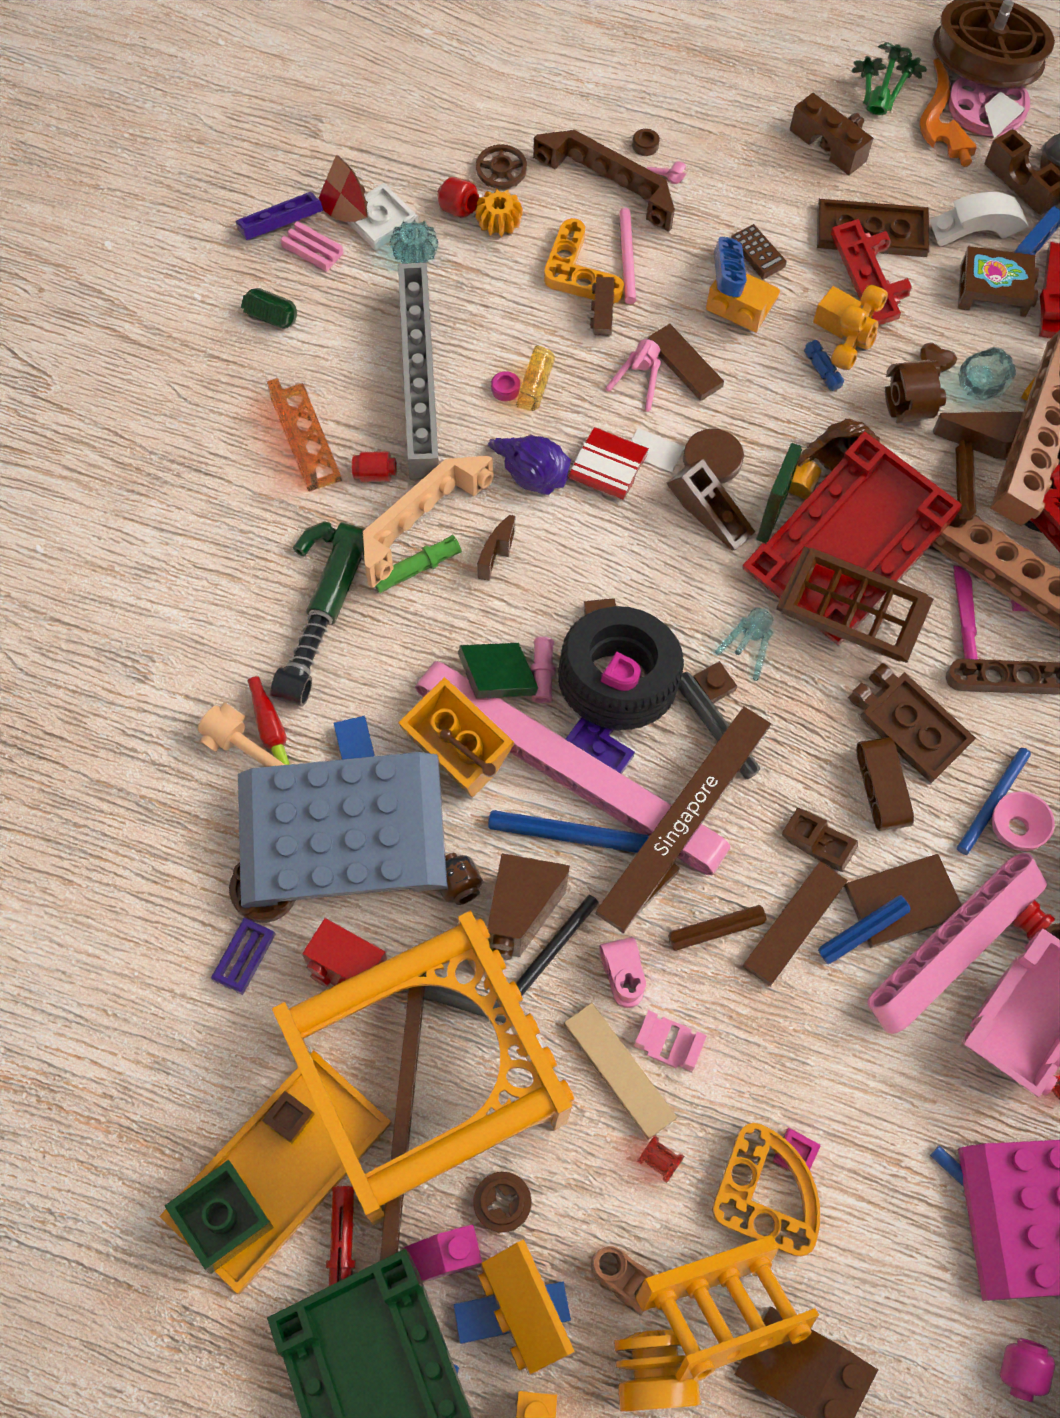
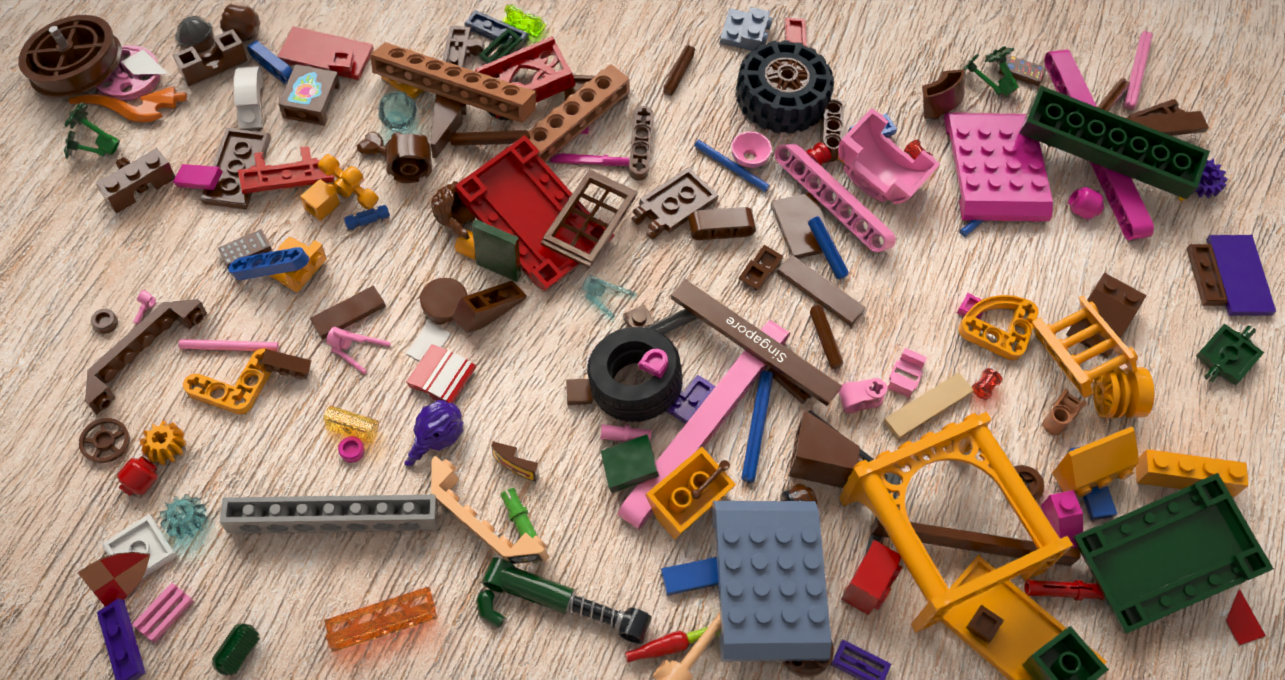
camera: 90 degrees left, 5 degrees down
(374, 466) = (424, 556): red brick -> none
(848, 190) = (198, 176): none -> dark pink tile

